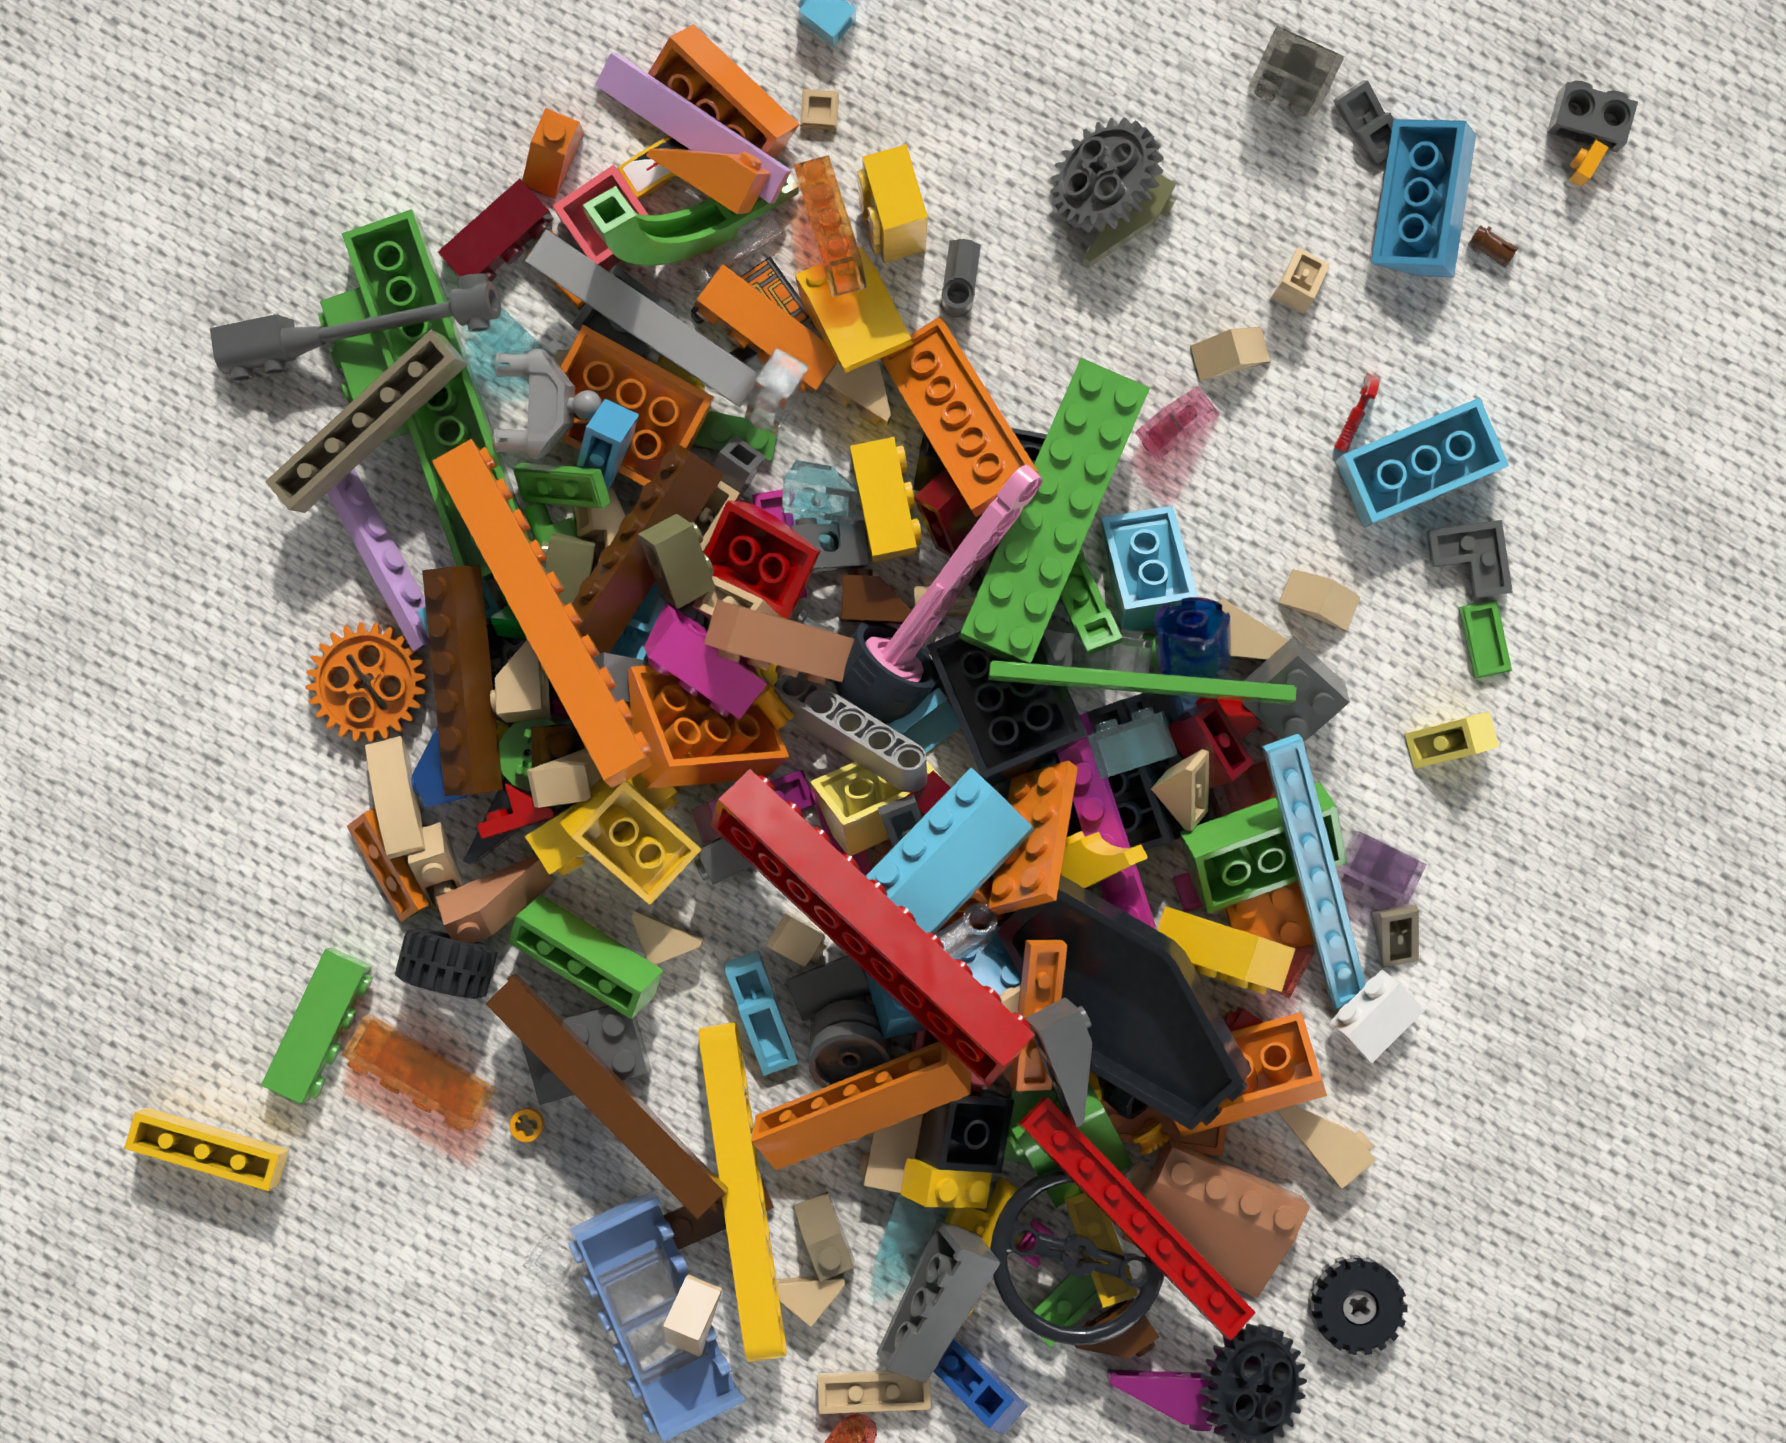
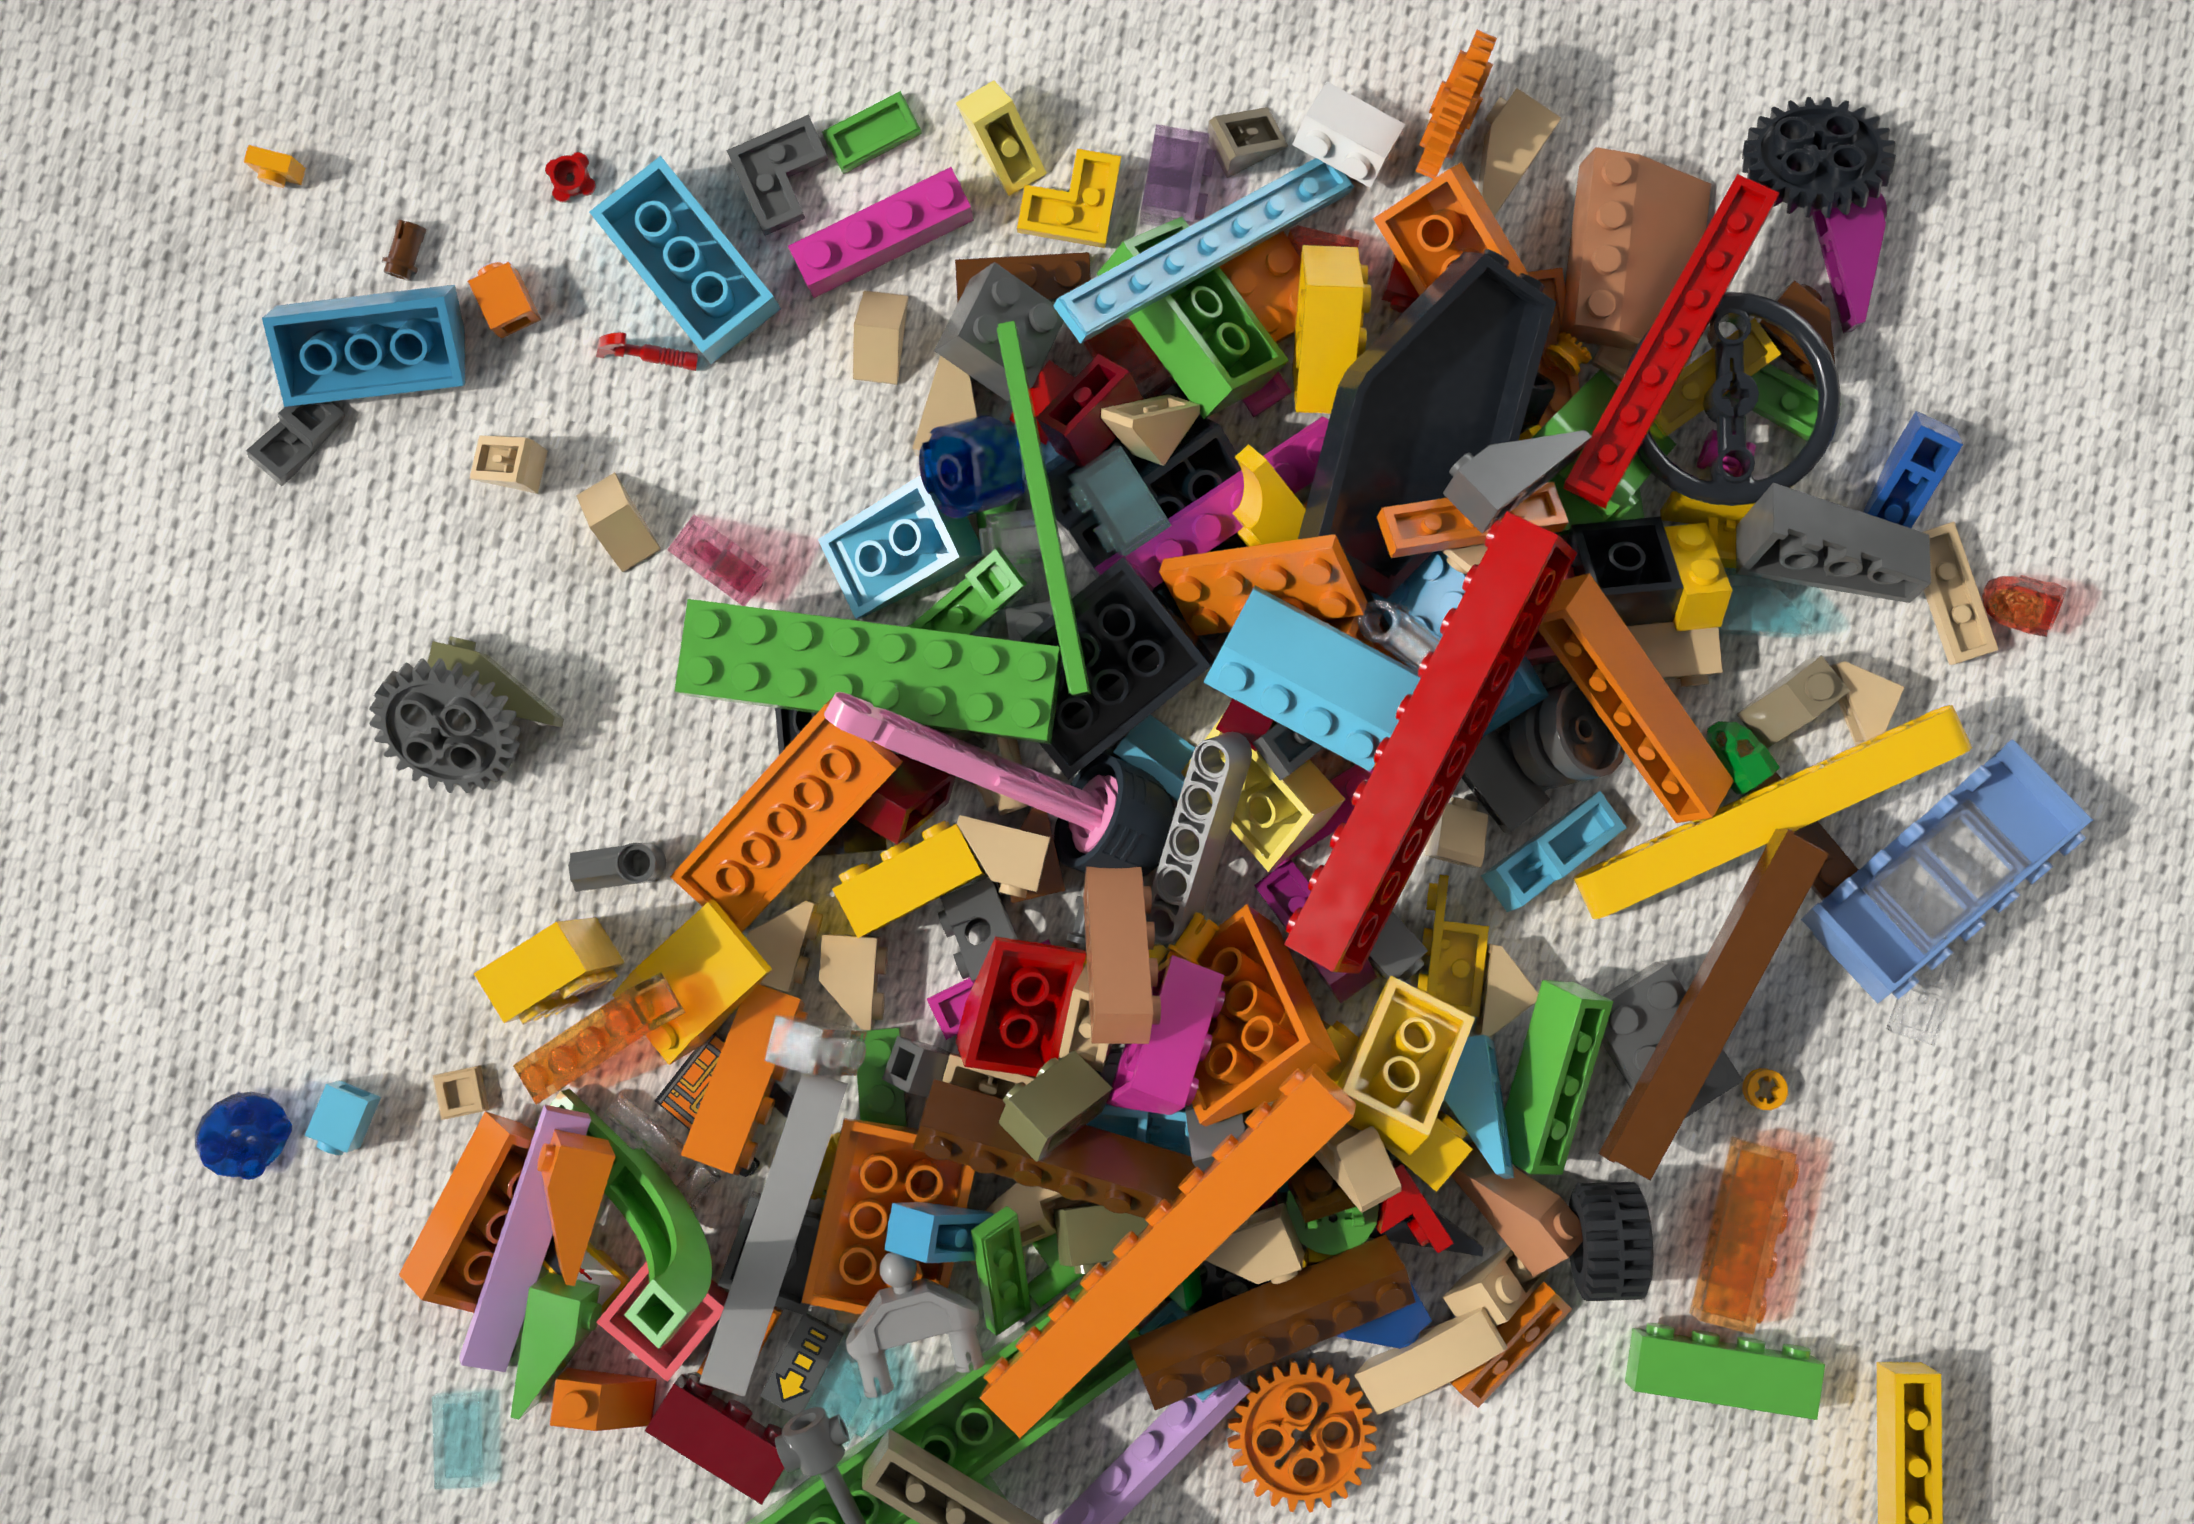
camera: 100 degrees left, 0 degrees up
(534, 313) = (802, 1364): none -> dark grey tile
(553, 34) = (457, 1440): none -> clear light blue tile
(583, 892) = (1478, 1103): none -> medium azure slope
(615, 130) = (553, 1331): none -> bright green slope
(692, 1315) = (1935, 828): slope -> none
(701, 909) = (1455, 955): none -> yellow bracket
(794, 1182) = (1741, 755): none -> green rock
(819, 493) = (923, 959): clear light blue slope -> none
(822, 435) = (851, 975): none -> tan slope
(882, 580) = (1007, 854): none -> tan slope
(1295, 72) = (258, 536): clear smoke brick -> none
(1331, 742) = (1047, 274): none -> reddish brown plate
(1357, 1279) = (1660, 77): black bush -> none
(1374, 787) = (1075, 215): none -> yellow plate
(1374, 1104) = (1456, 104): none -> orange gear
(1401, 622) = (882, 232): none -> dark pink brick
(1432, 312) = (503, 299): none -> orange brick
(1523, 384) = (560, 168): none -> red plate
(1591, 124) = (224, 174): dark grey brick -> none

